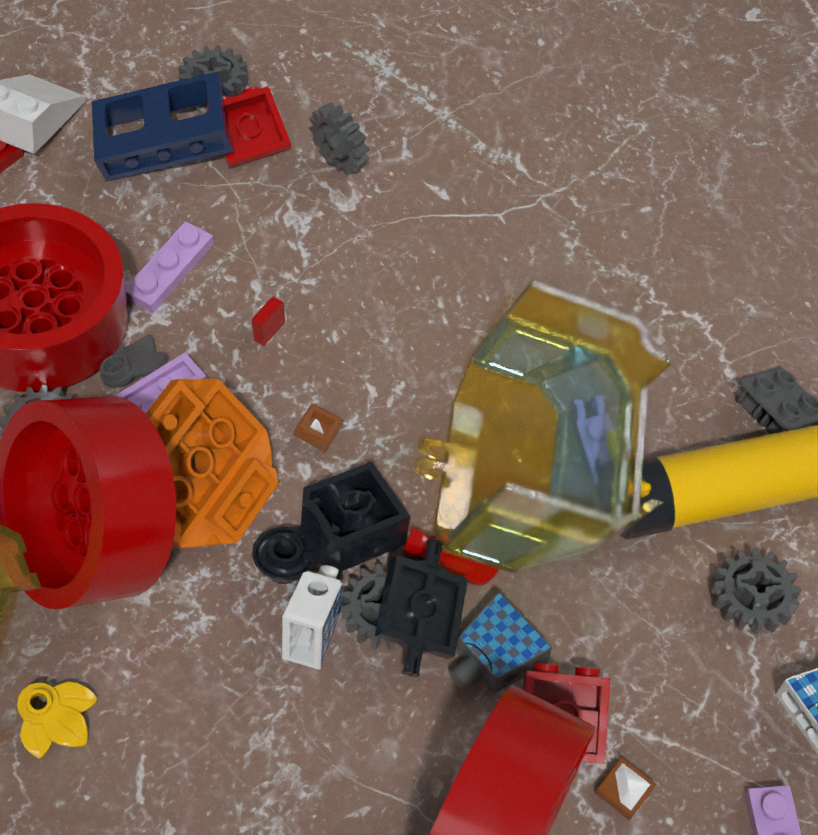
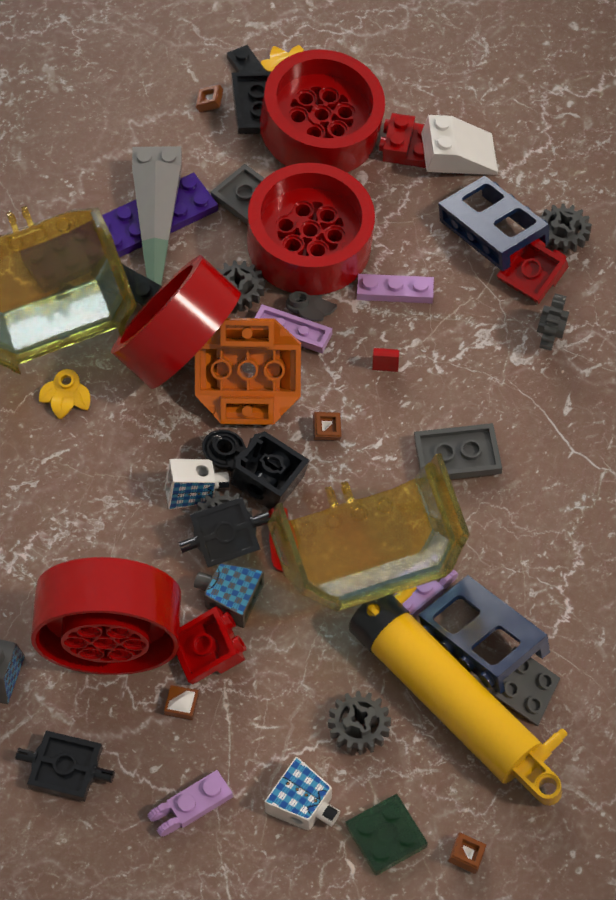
camera: 65 degrees right, 0 degrees up
(441, 316) = (465, 450): none -> dark grey plate
(702, 378) = (493, 616): none -> dark blue window

